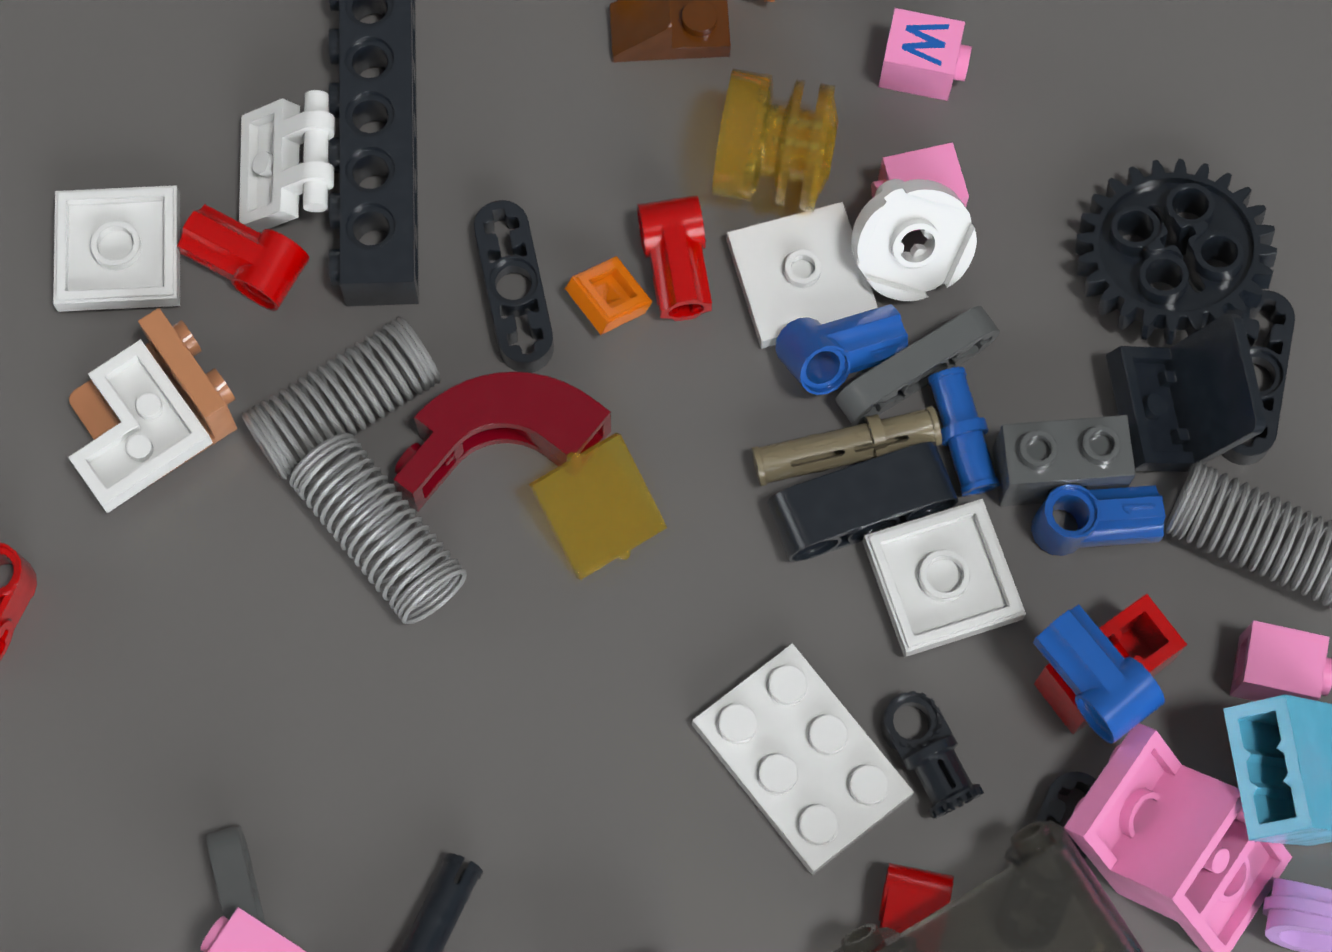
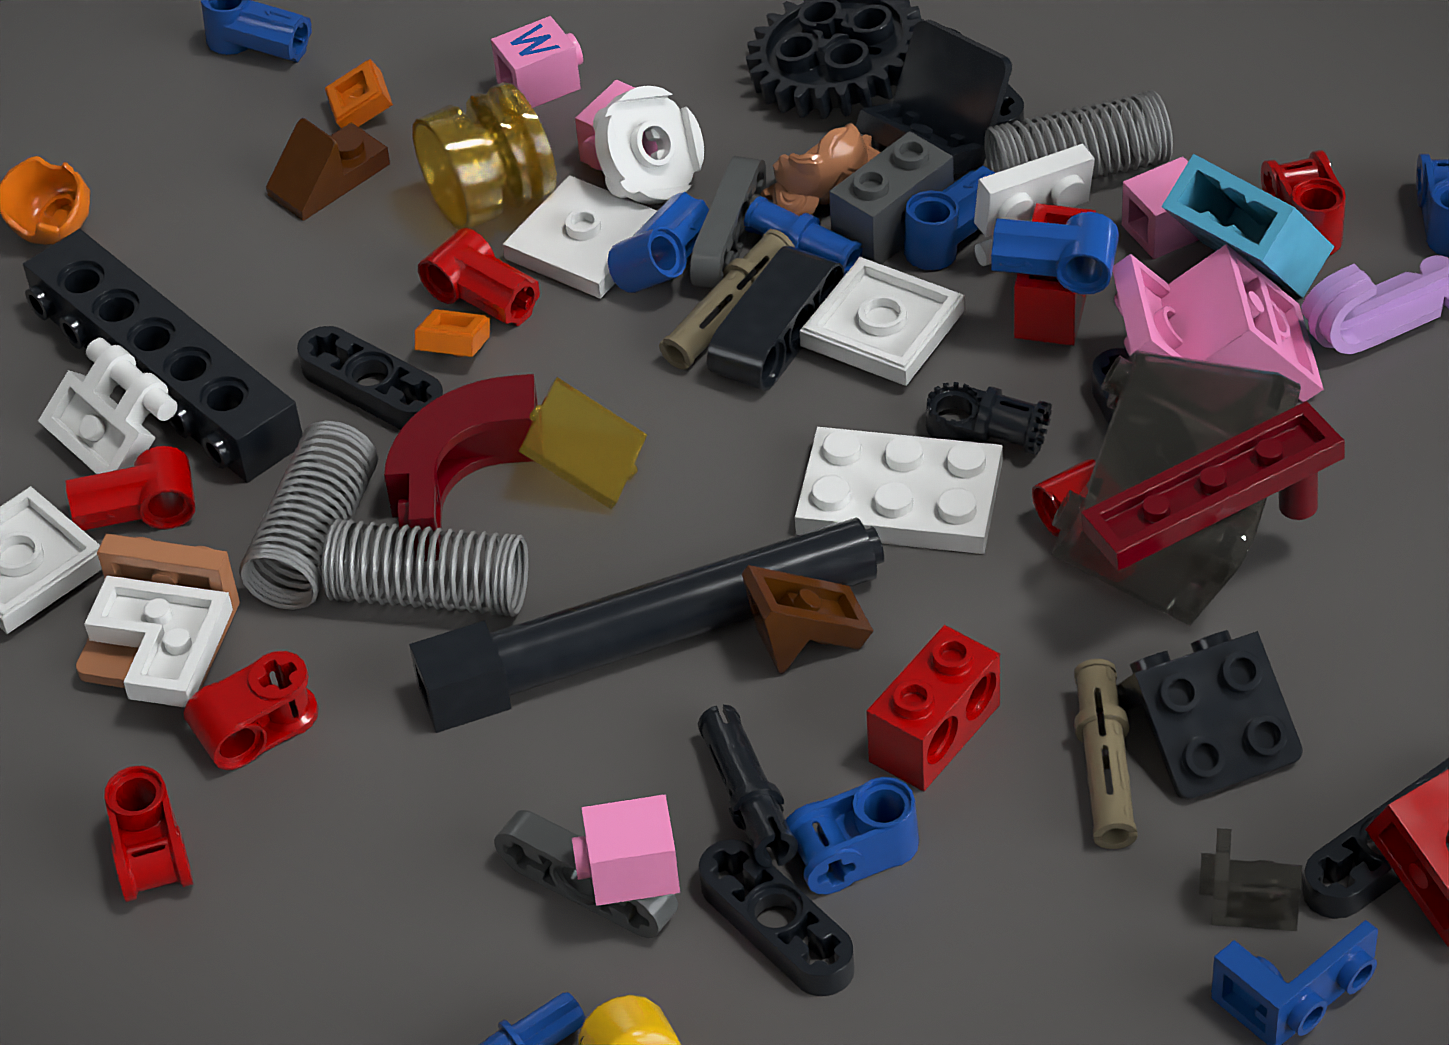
camera: 35 degrees left, 25 degrees down
(141, 551) = (249, 713): none -> red piece
(346, 666) = (475, 671): none -> black brick
(606, 829) = (802, 609): none -> reddish brown slope
(1040, 378) = (807, 178): none -> nougat hair
(1171, 581) = (1013, 193): none -> white plate

